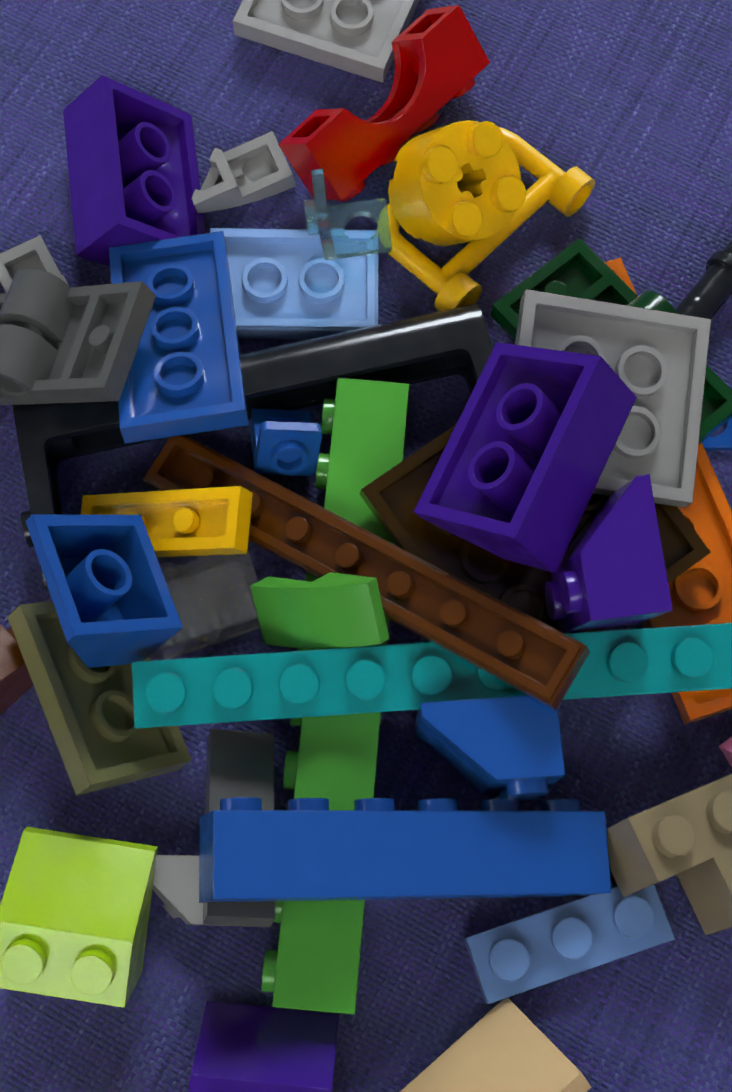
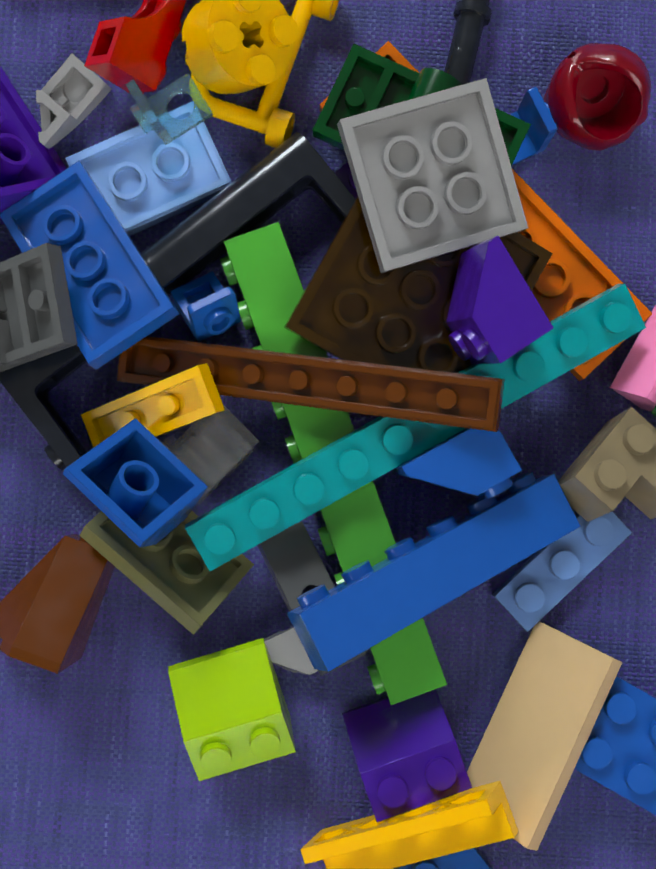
camera: 25 degrees left, 15 degrees up
(320, 613) = (302, 430): bright green slope -> none
(528, 453) = (398, 250): dark purple slope -> none

